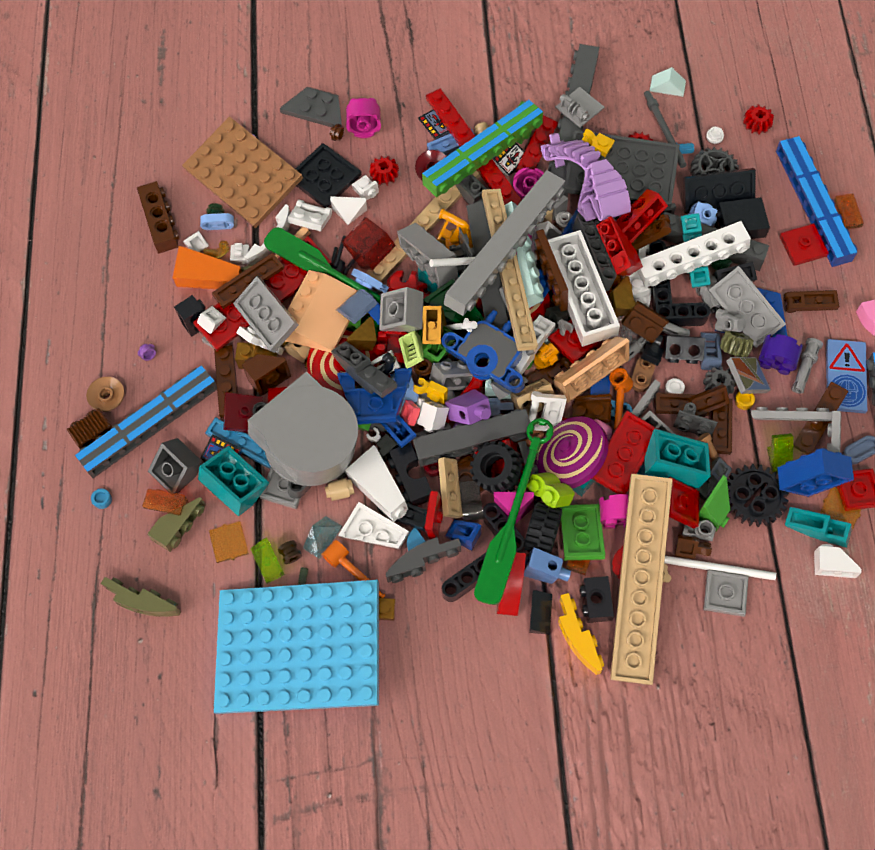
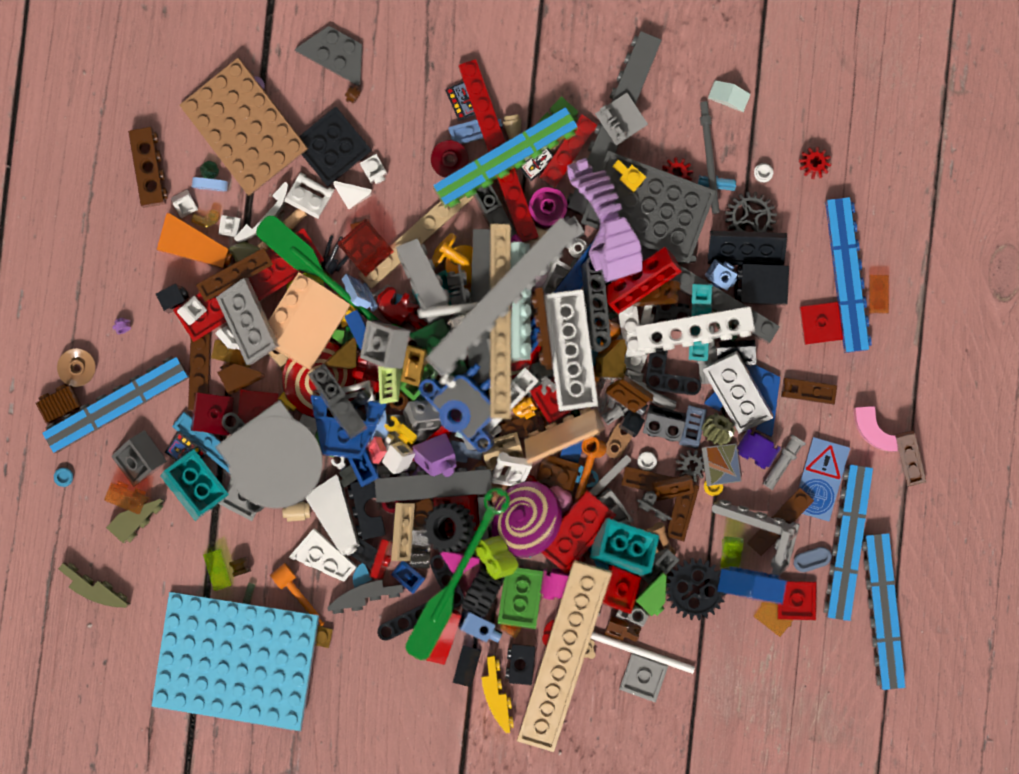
camera: 10 degrees right, 20 degrees up
(228, 542) = (182, 543): clear yellow piece -> none
(321, 536) = (273, 554): clear light blue slope -> none
(357, 306) = (341, 323): sand blue piece -> none
(363, 117) = (384, 84): dark pink brick -> none
(384, 170) = (403, 150): red gear -> none
(620, 250) = (619, 316): red slope -> none
(729, 322) = (714, 408): light grey plate -> none
(819, 526) = (747, 630): teal slope -> none
(834, 562) = (750, 667): white slope -> none

